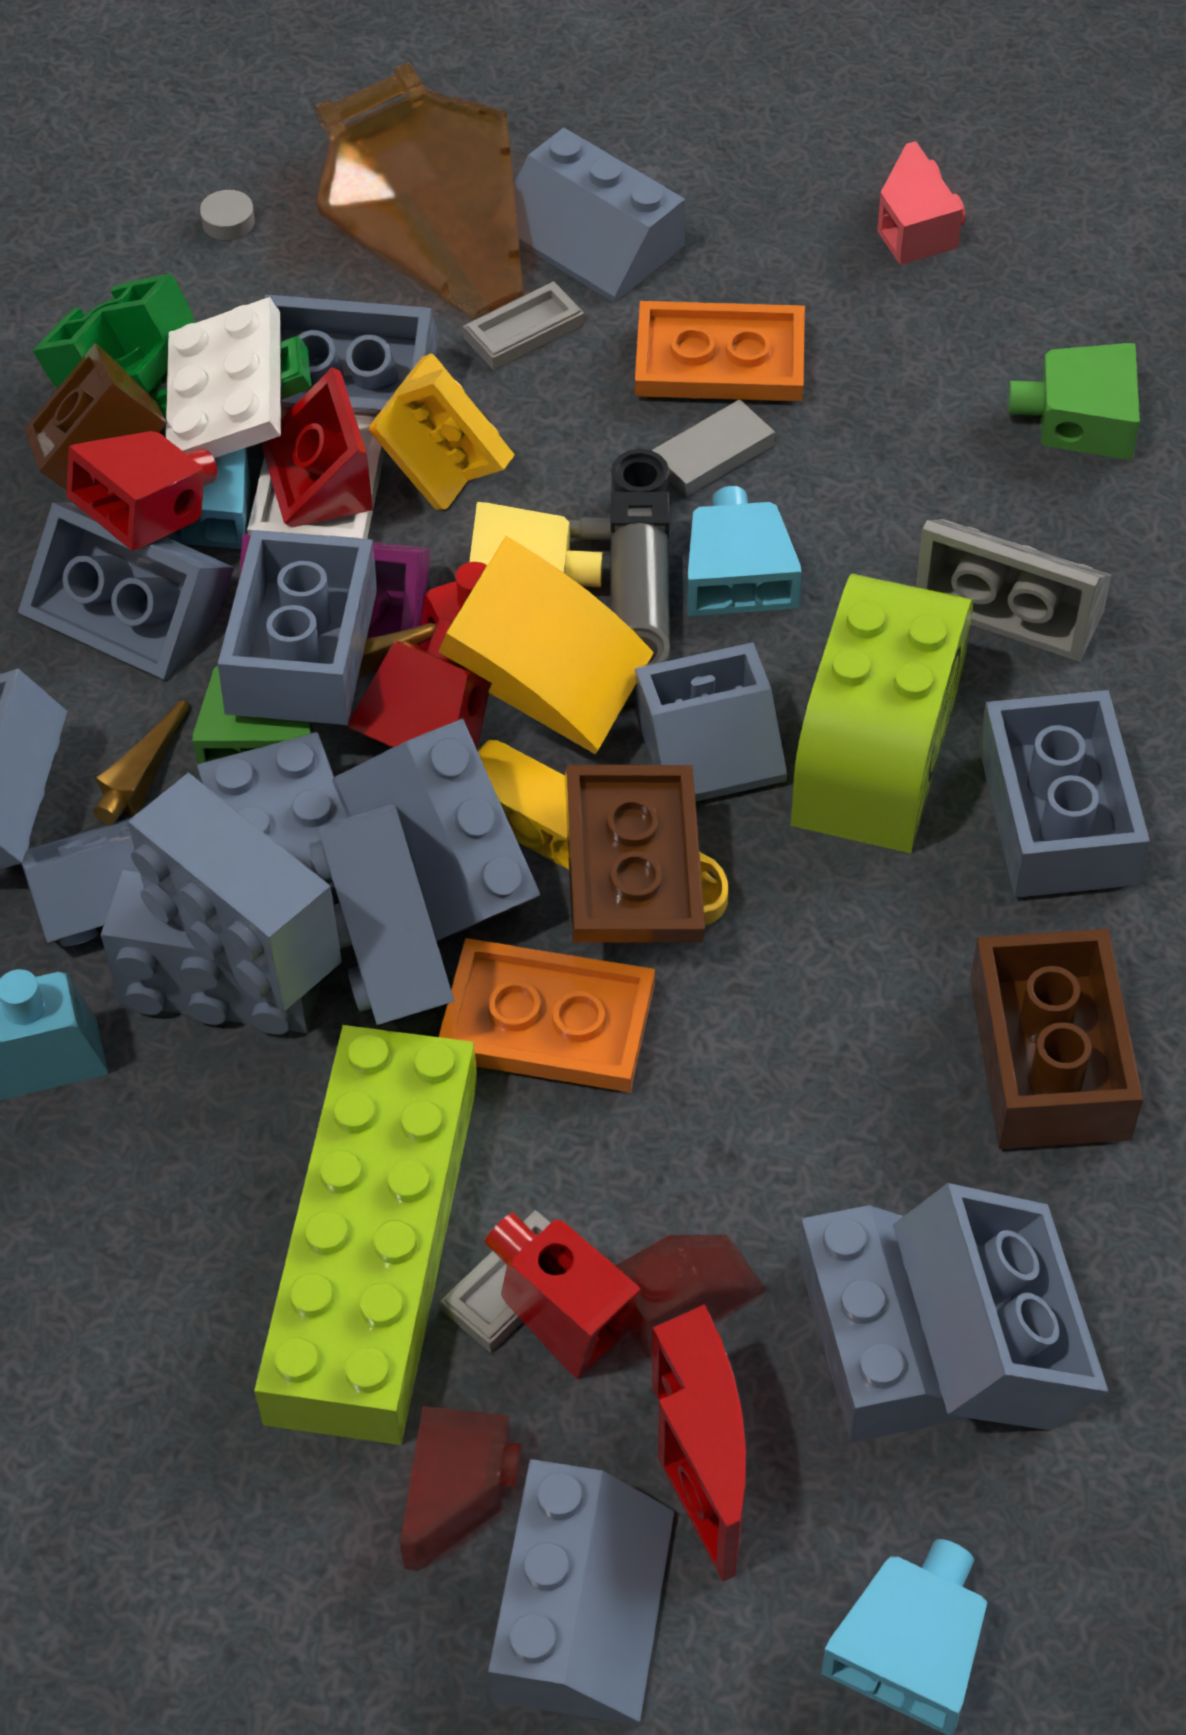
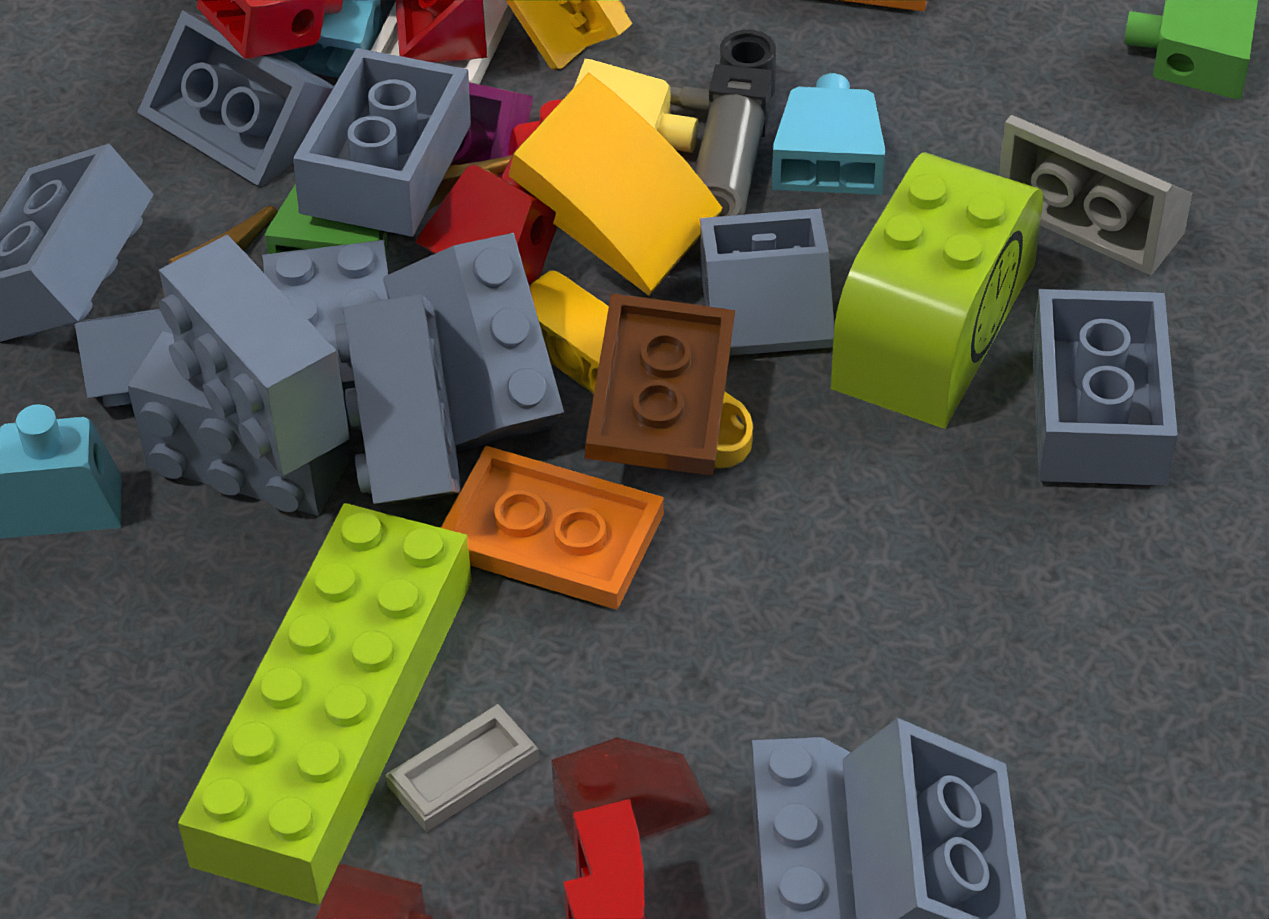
camera: 10 degrees right, 5 degrees down
(563, 1290) = (503, 777): red torso -> none
(715, 447) = (830, 42): light grey tile -> none
(1055, 1039) = (1047, 612): reddish brown brick -> none

